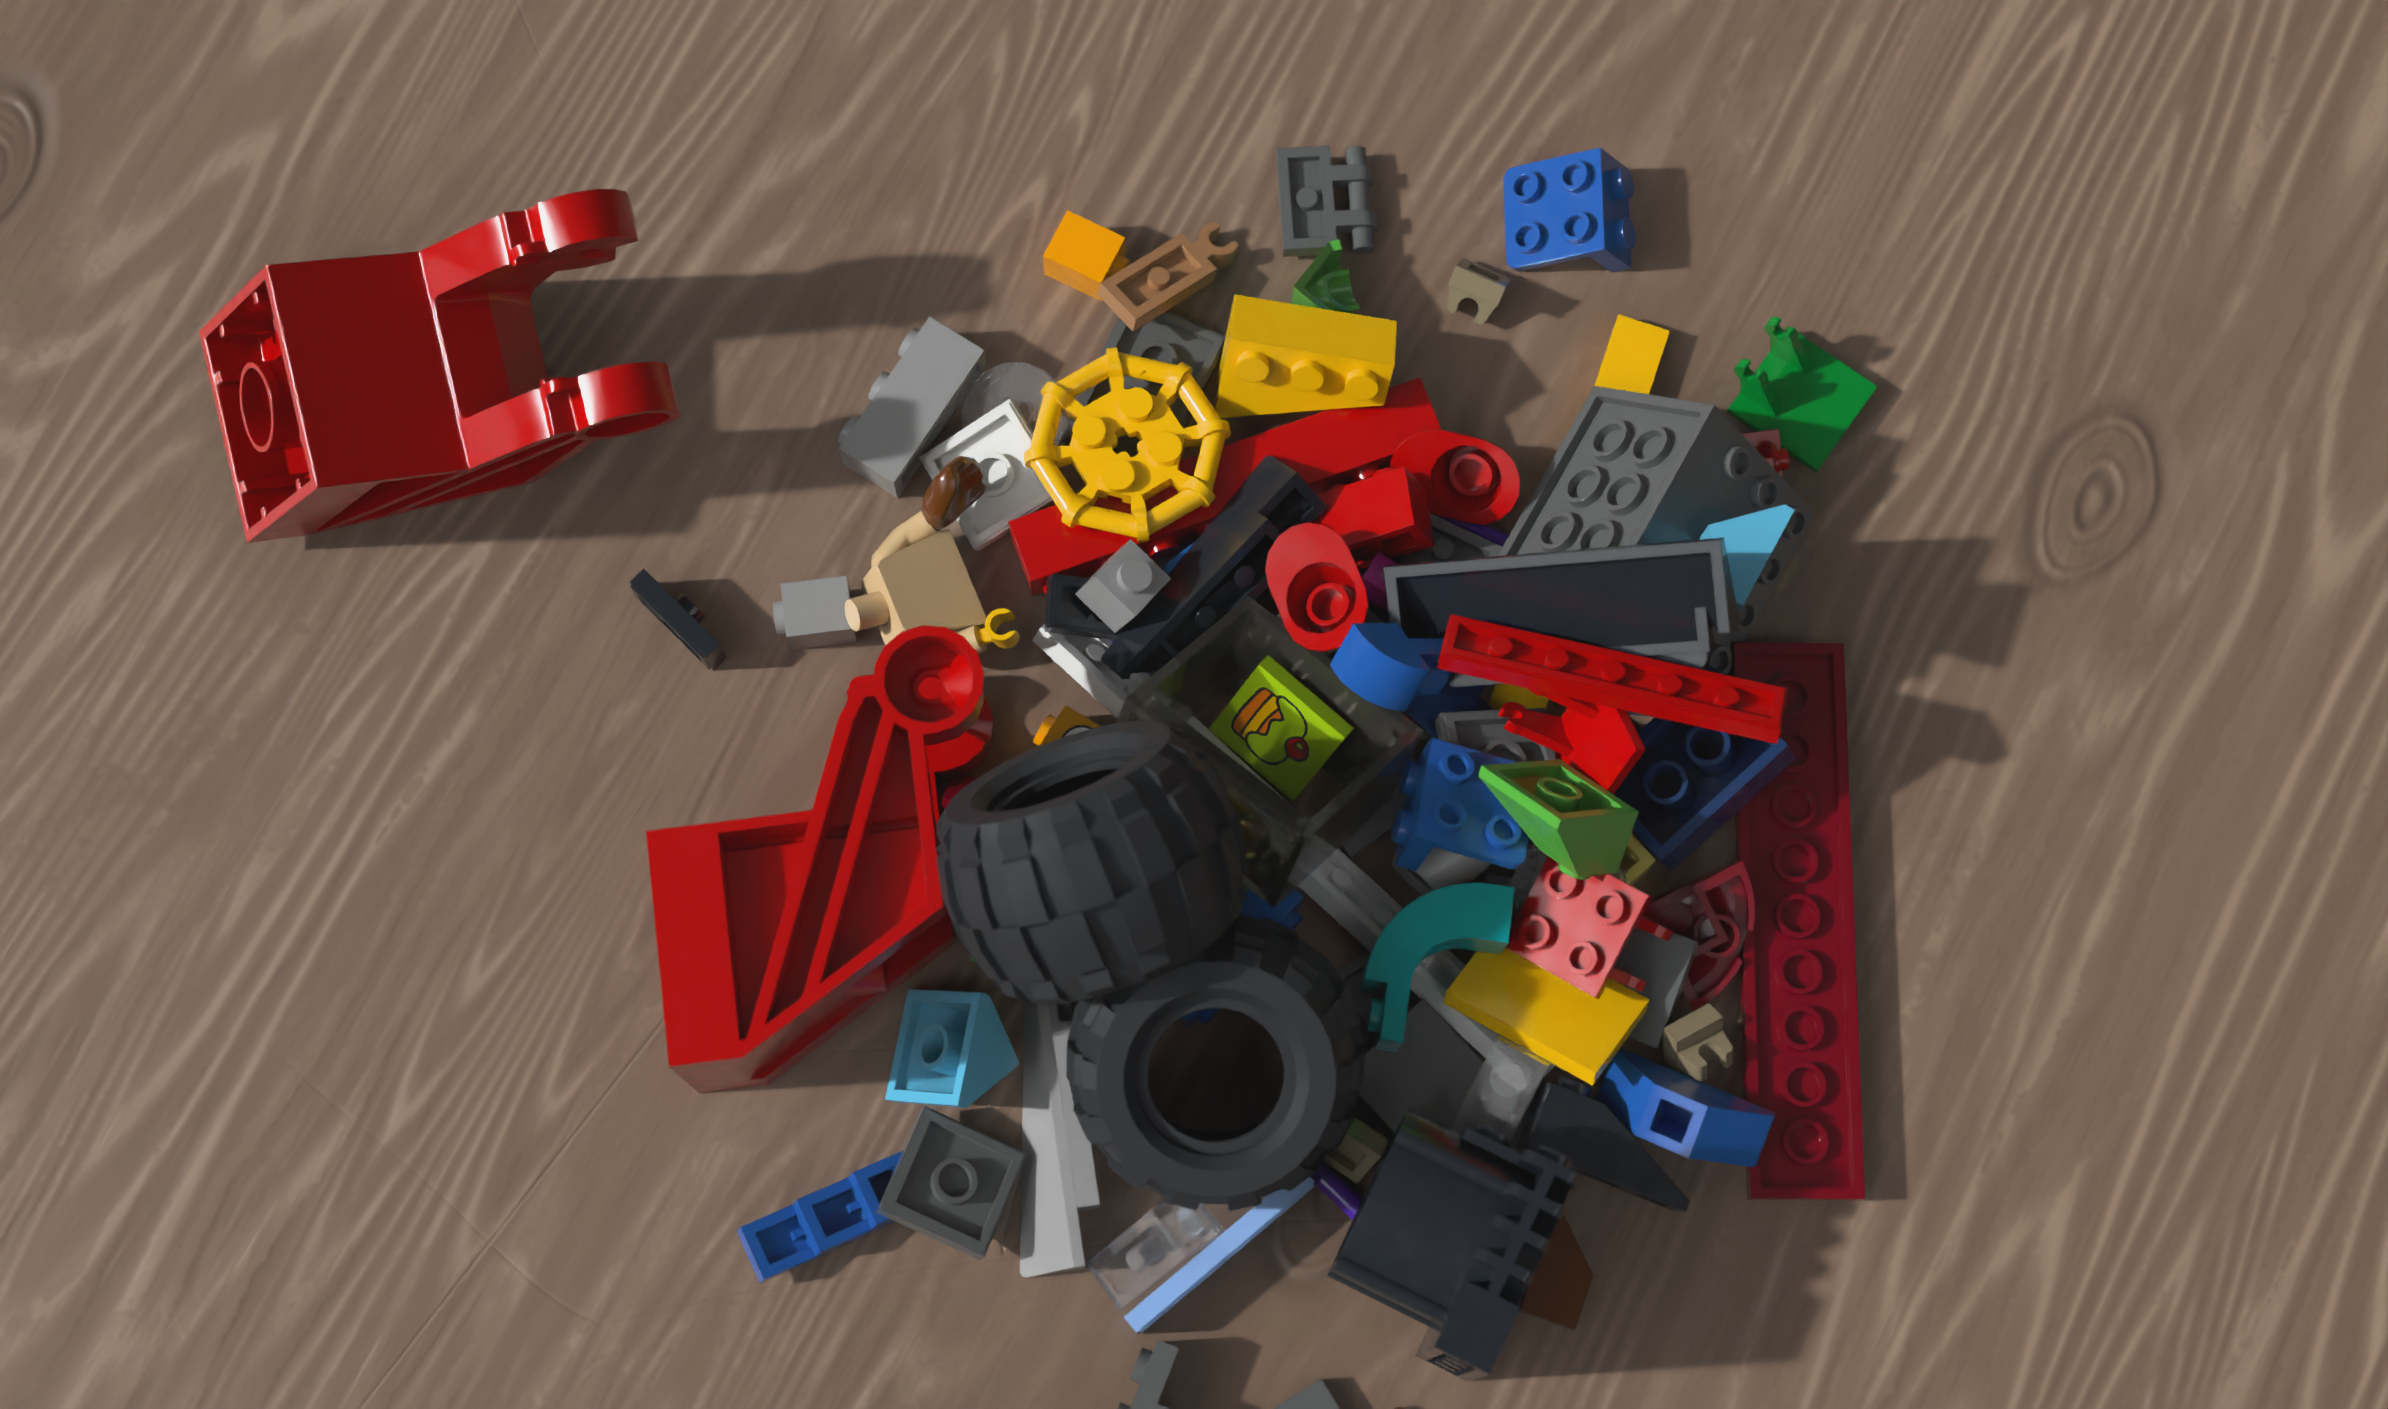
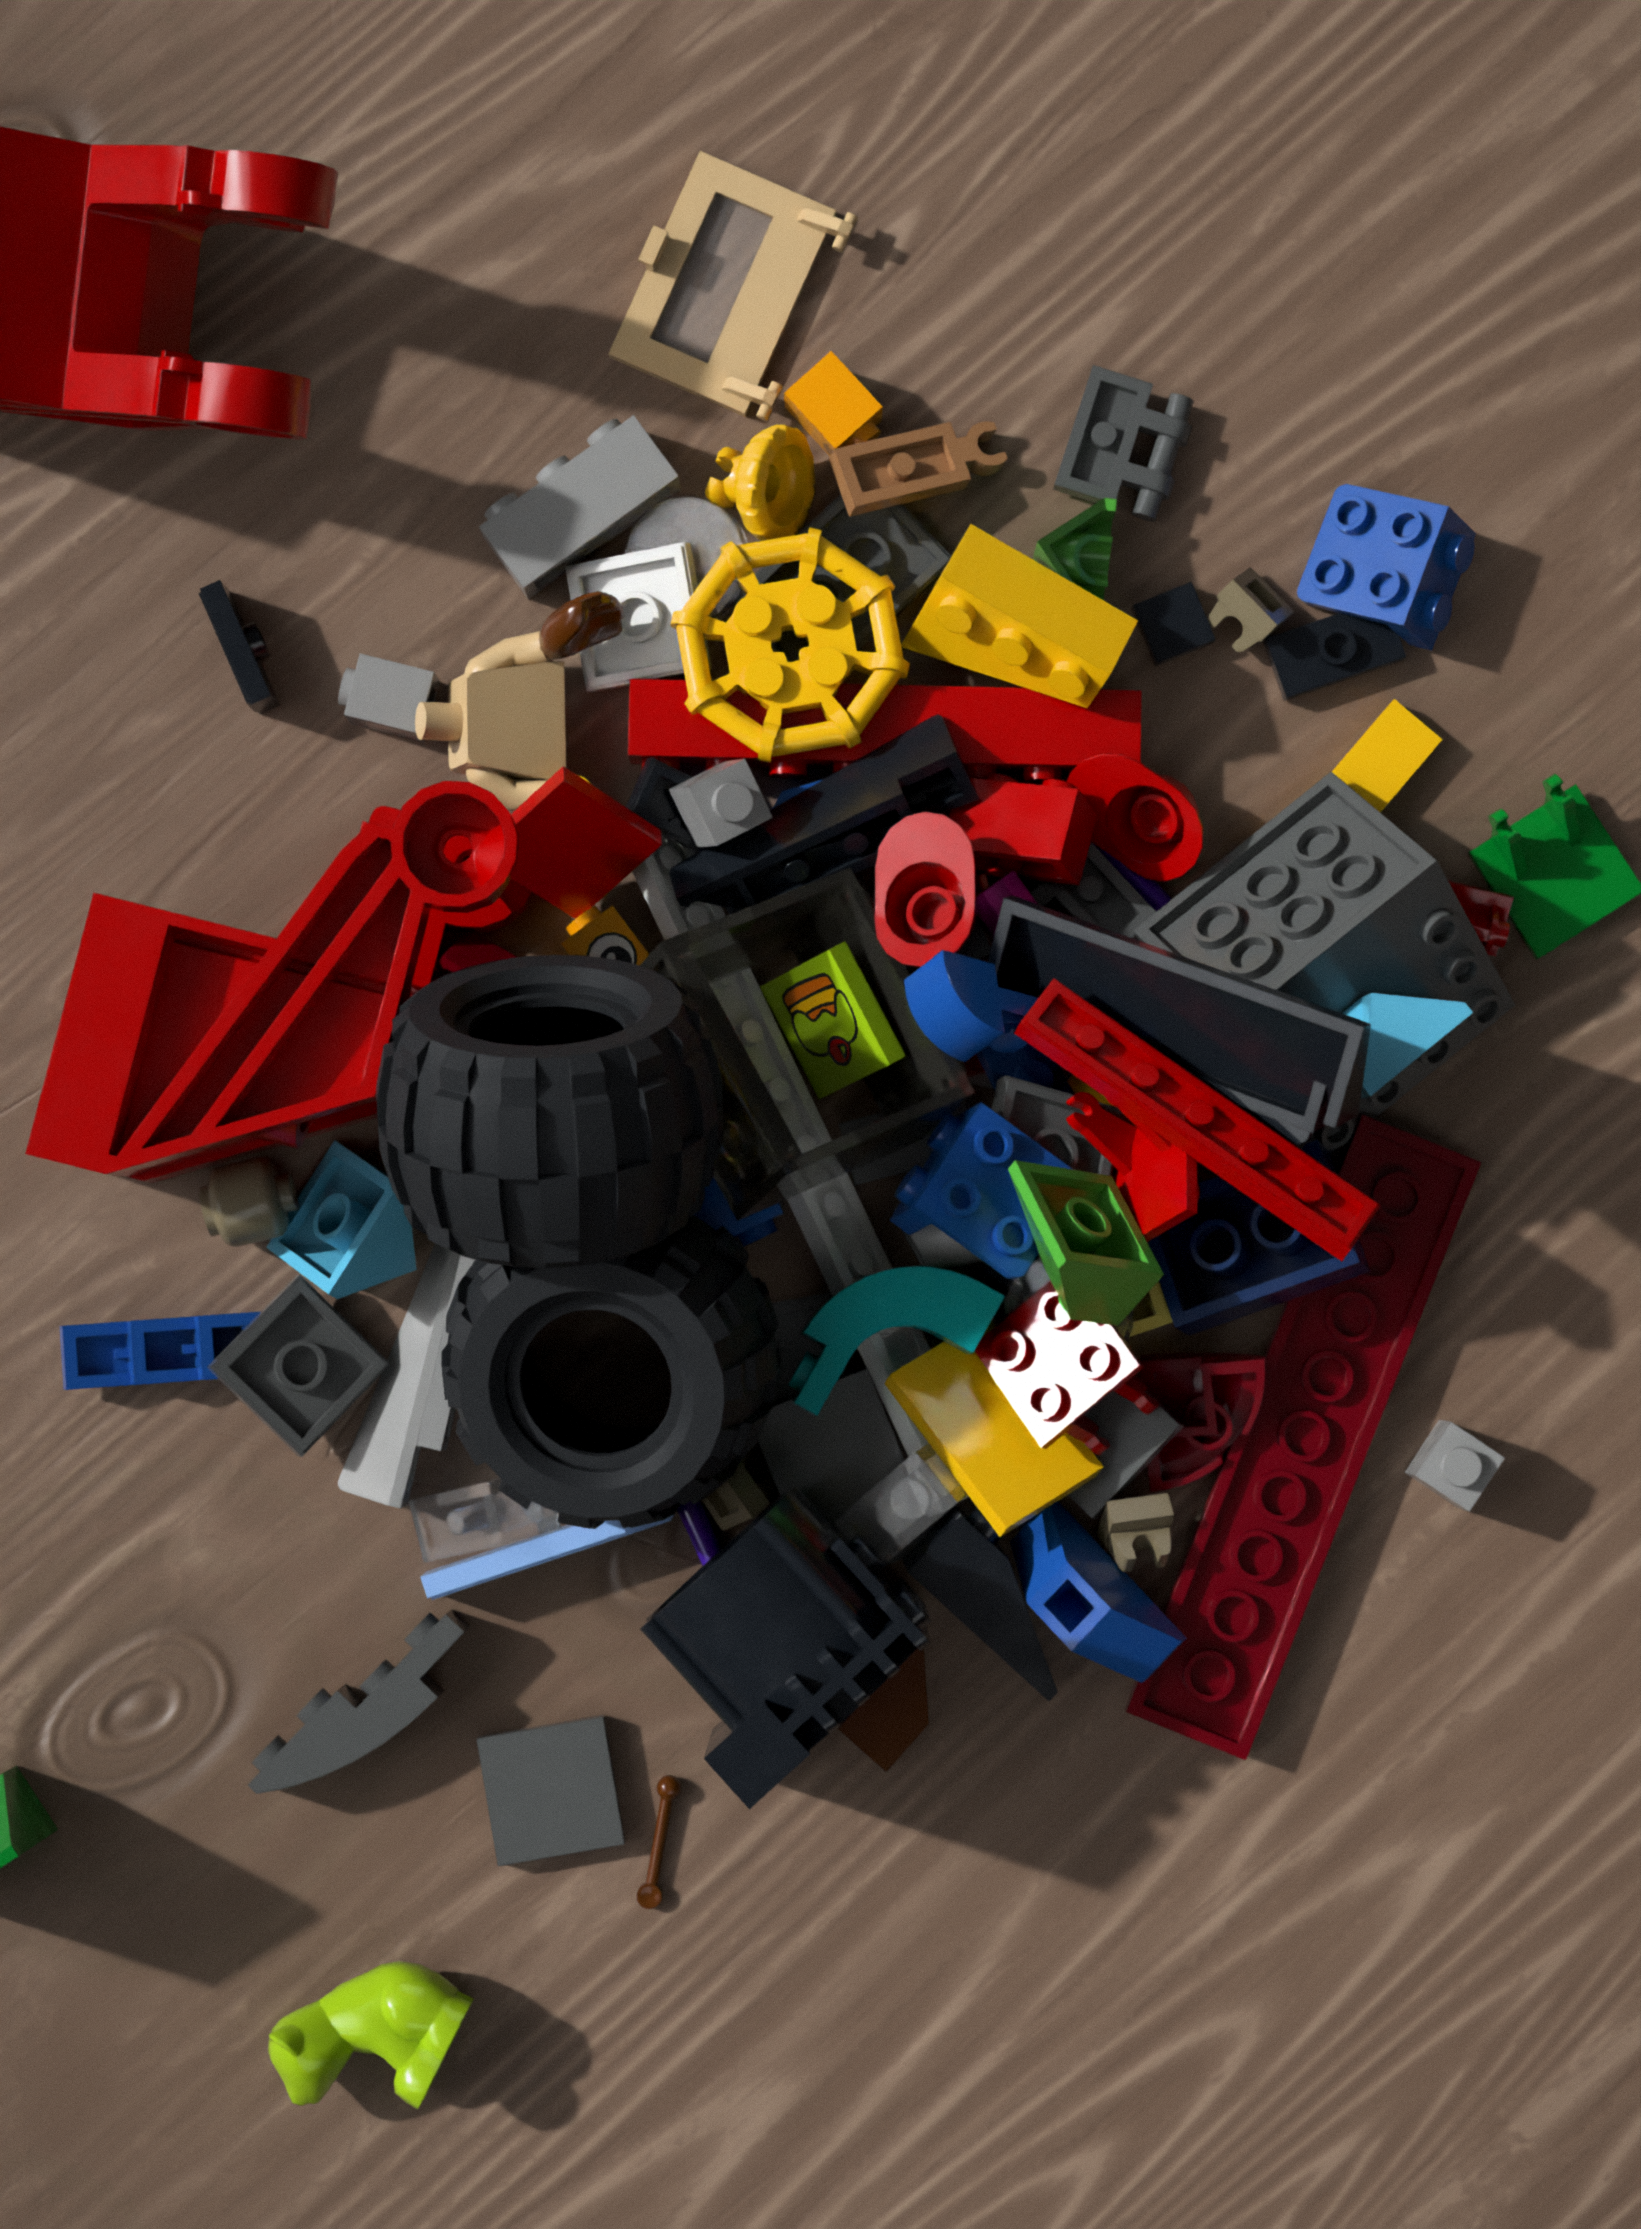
camera: 30 degrees right, 10 degrees up
(857, 1063) = (248, 1201): none -> dark tan head
(959, 198) = (724, 284): none -> tan piece
(1023, 662) = (578, 842): none -> red tile
(1056, 330) = (767, 482): none -> yellow hair
(1422, 323) = (1173, 624): none -> black tile
(1553, 298) = (1330, 652): none -> black plate
(1927, 891) = (1454, 1465): none -> light grey brick

